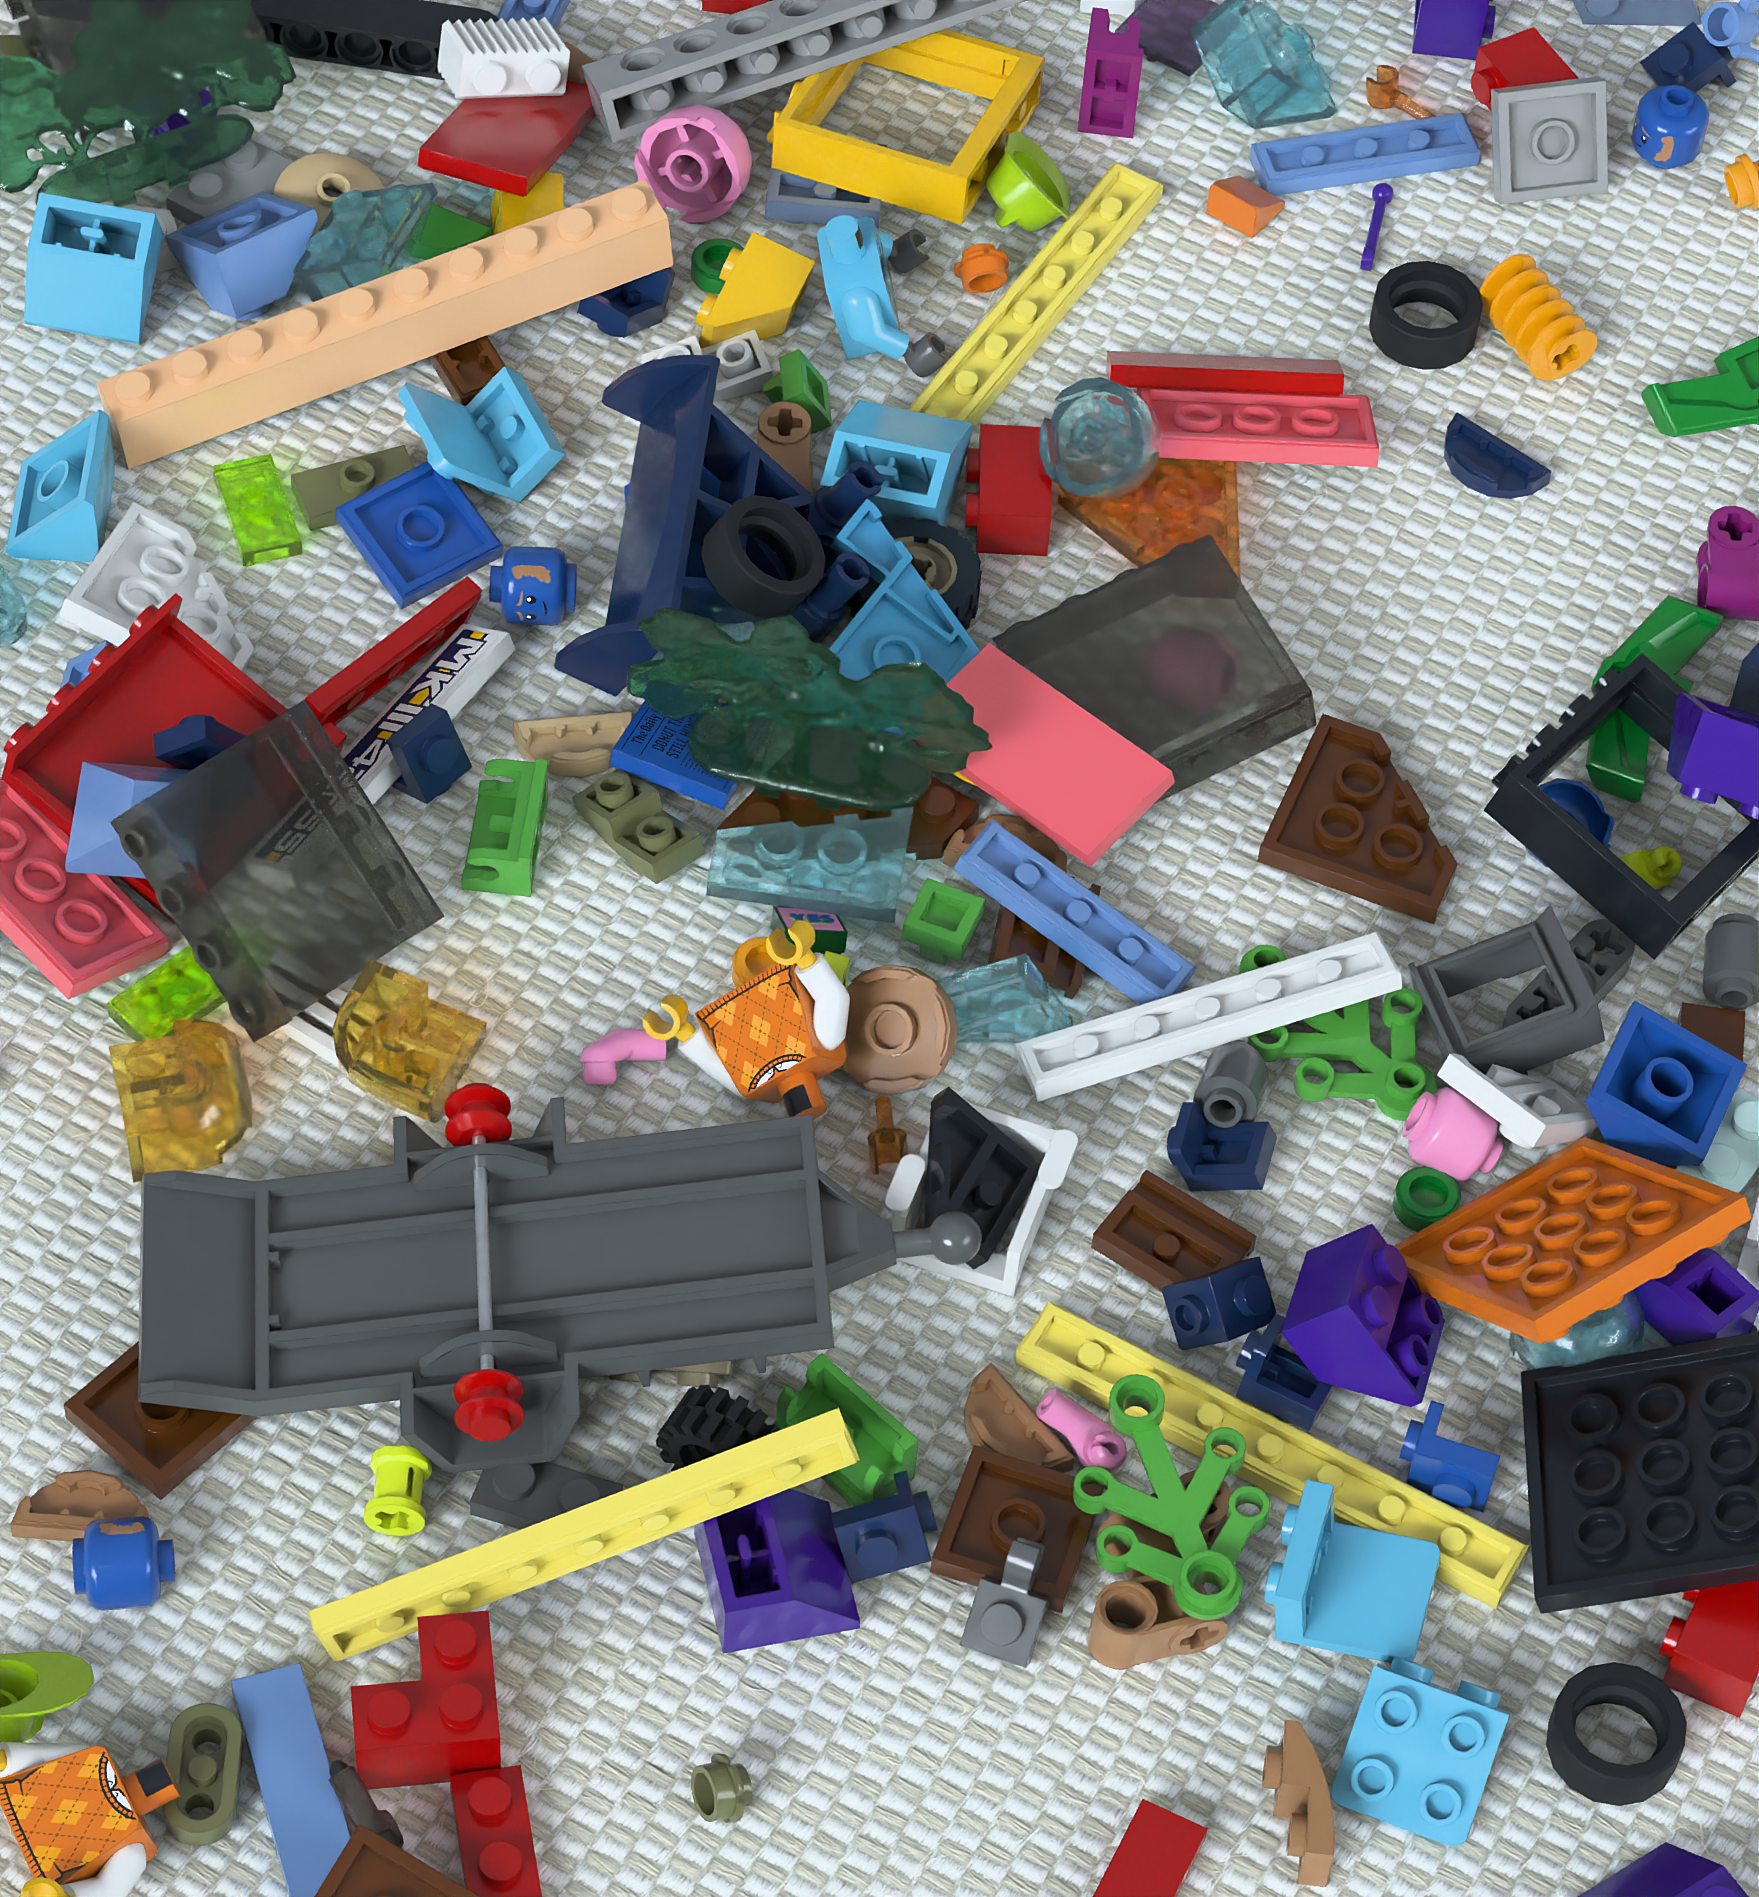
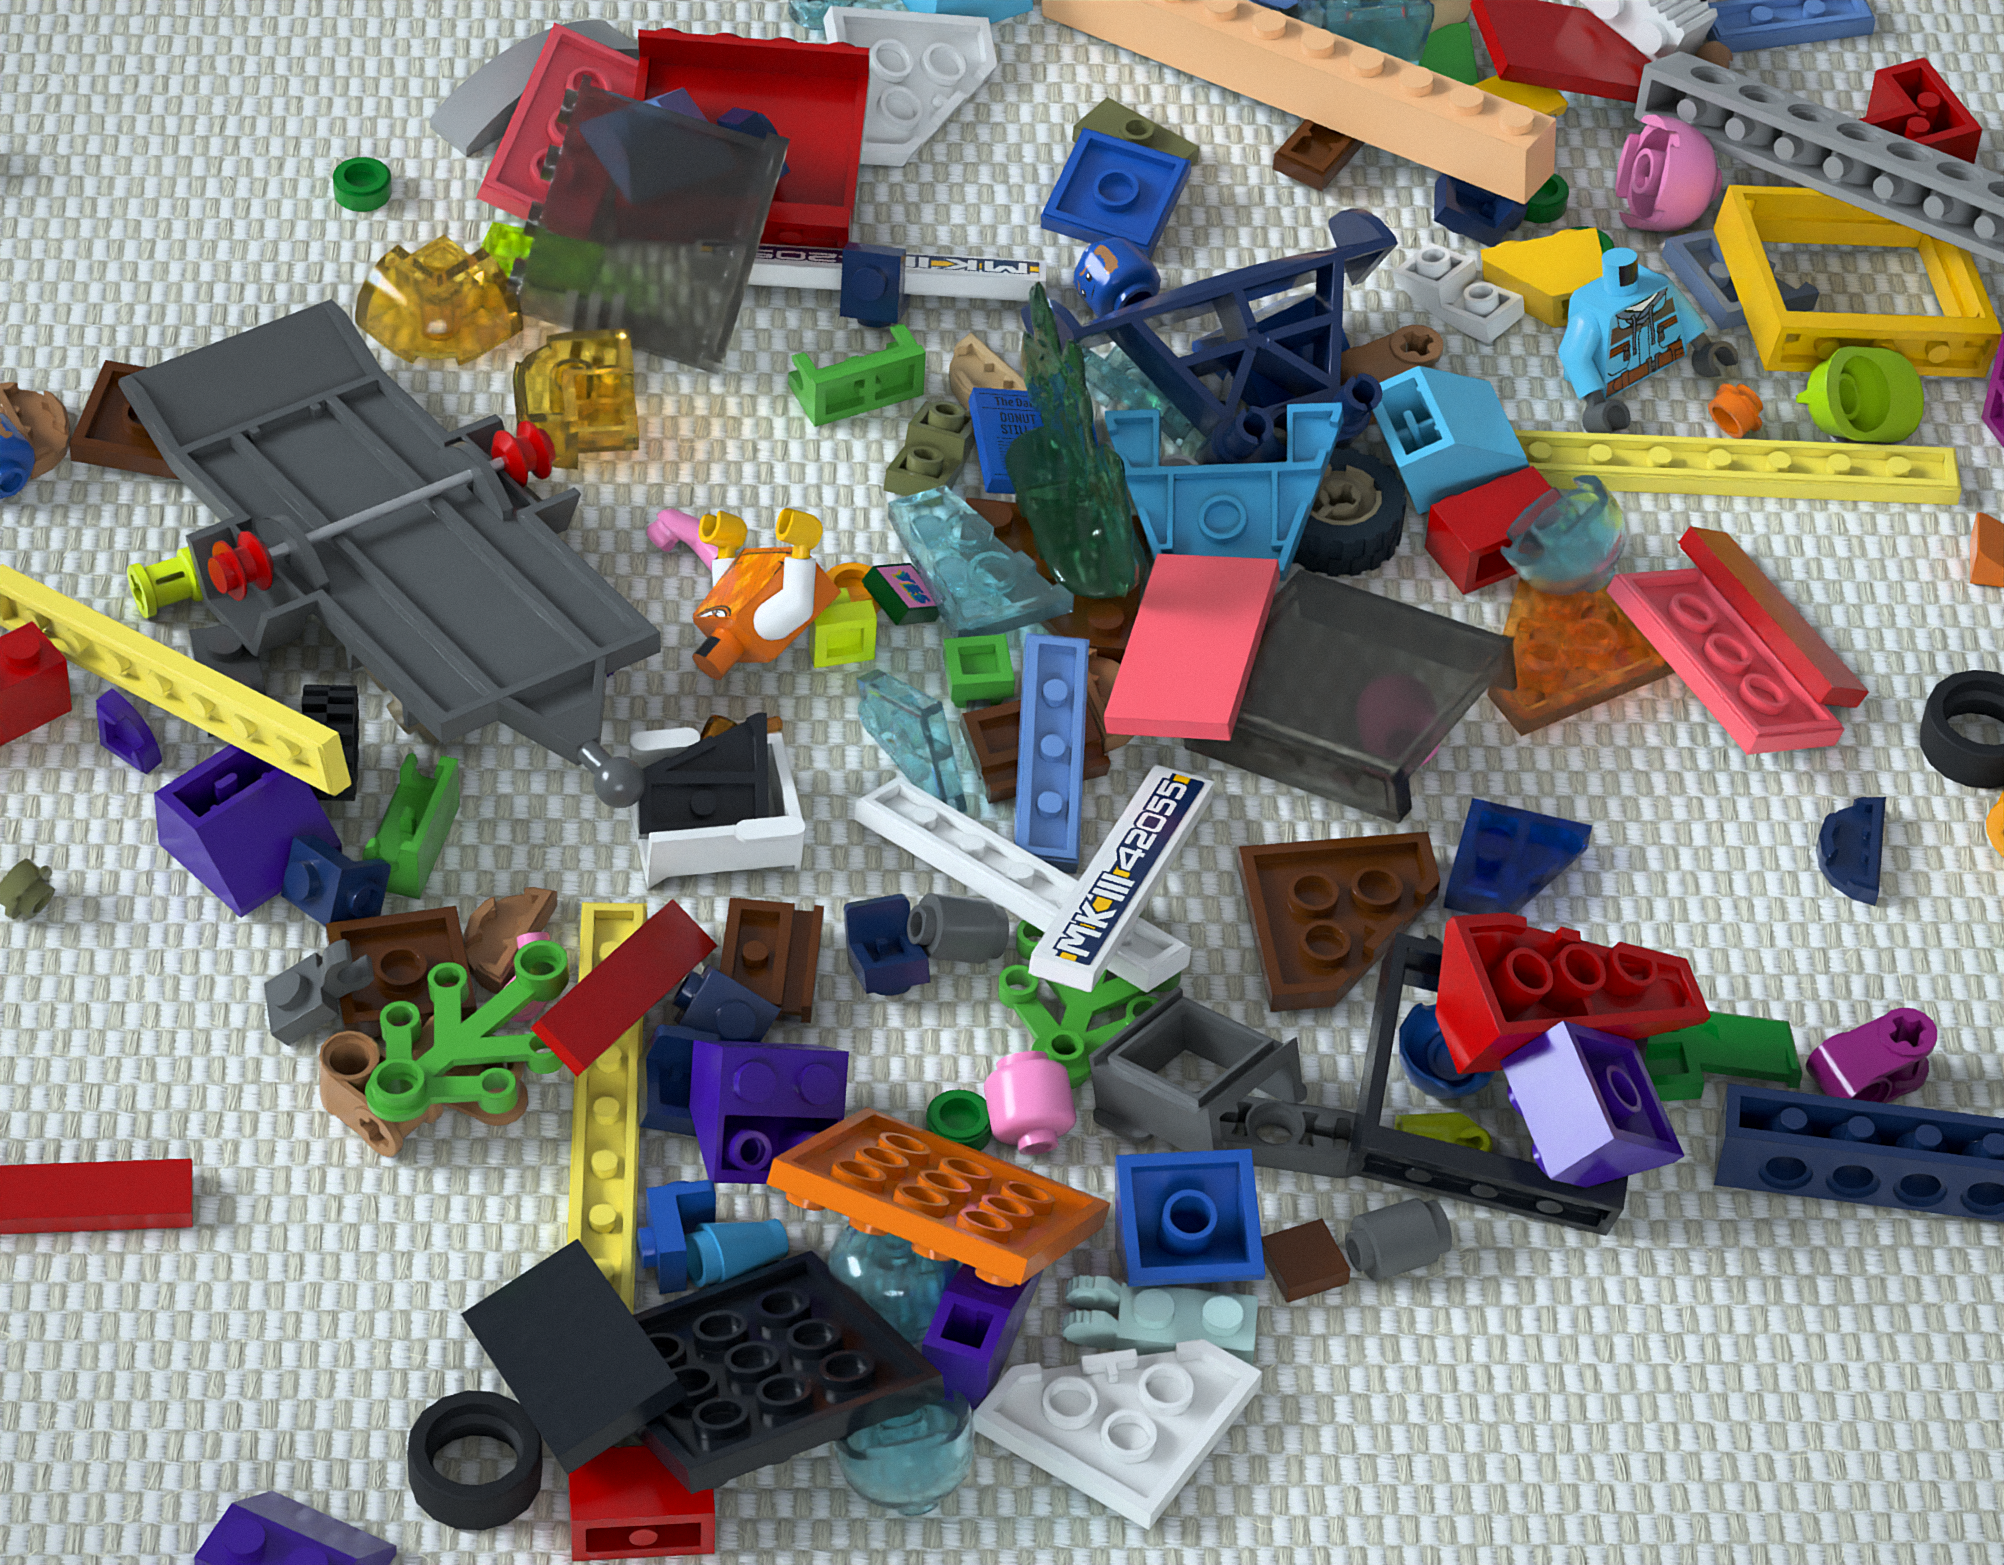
camera: 60 degrees right, 5 degrees down
(257, 510) = (1059, 98): clear neon green plate -> none
(395, 654) = (952, 221): red tile -> none
(492, 442) = (1230, 176): medium azure bracket -> none
(573, 1614) = (126, 732): none -> dark purple tile
(742, 580) = (1248, 337): black tyre -> none
(801, 384) = (1481, 350): bright green tile -> none
(898, 1029) = (832, 680): medium nougat tile -> none
(1180, 1356) = (623, 987): none -> red slope
(1271, 938) = (1121, 879): none -> tile
(1305, 1799) = (275, 1254): medium nougat slope -> none
(1349, 1583) = (492, 1198): medium azure bracket -> none
(1373, 680) = (1510, 857): none -> clear blue wing
(1420, 1752) = (367, 1317): medium azure bracket -> none
(1490, 1424) = (733, 1249): none -> dark azure cone
(1527, 1106) = (1082, 1125): white wing -> none
(1580, 1595) = (574, 1356): none -> black tile
(1640, 714) = (1516, 982): none -> red wedge

